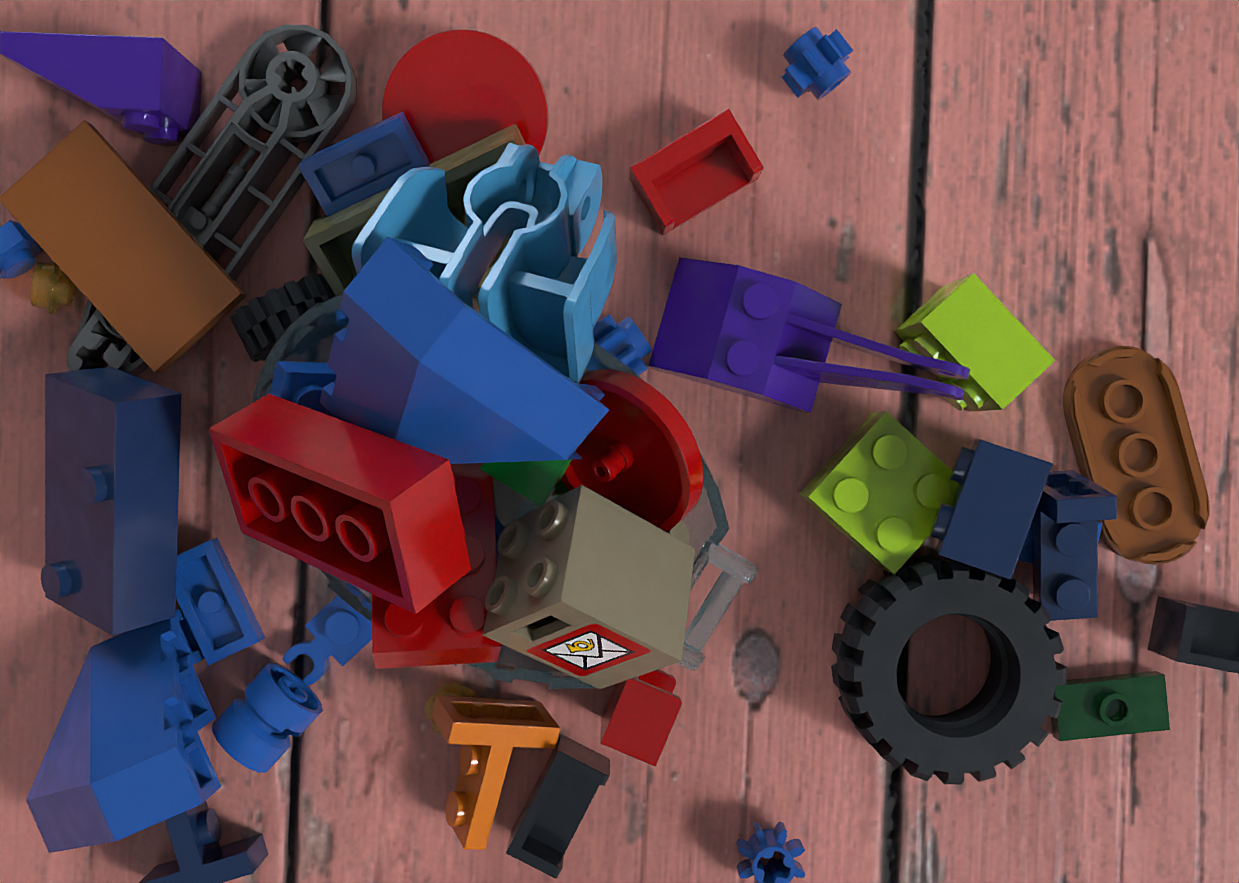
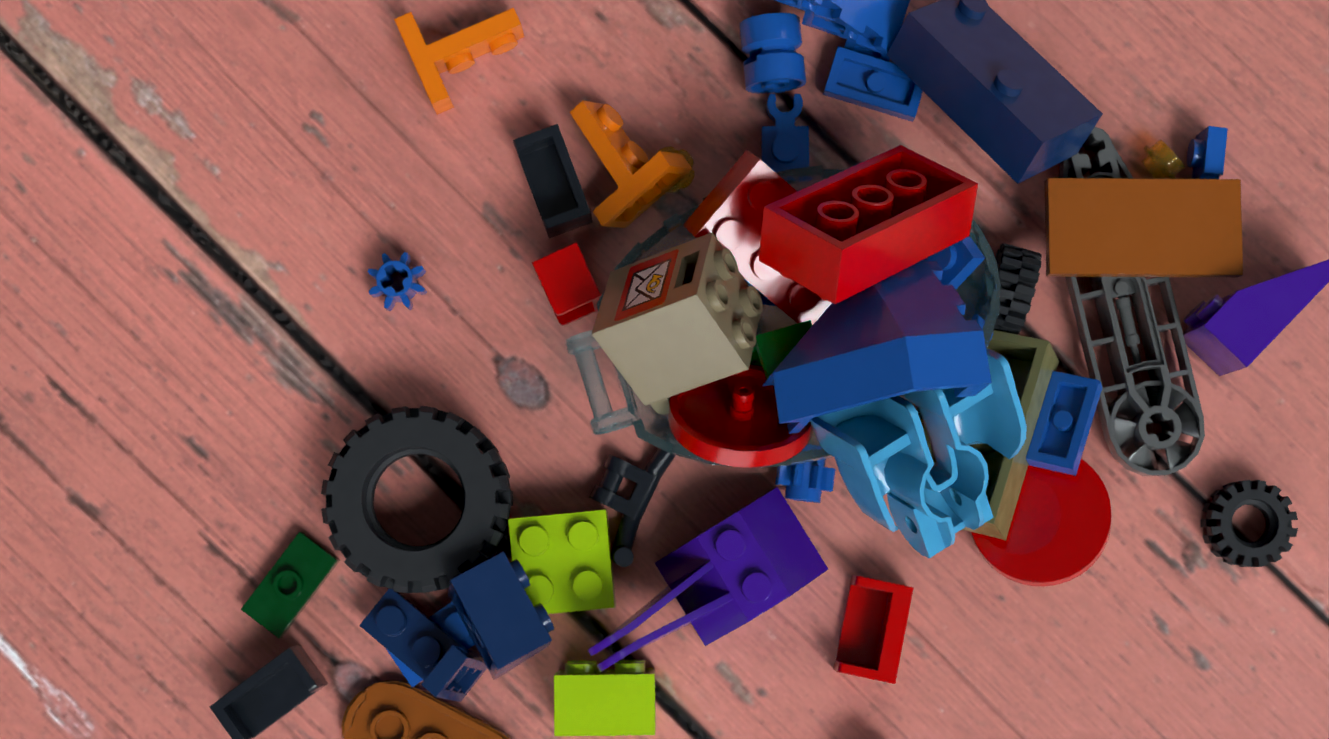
camera: 130 degrees right, 5 degrees down
(780, 473) = (636, 505): none -> black piece

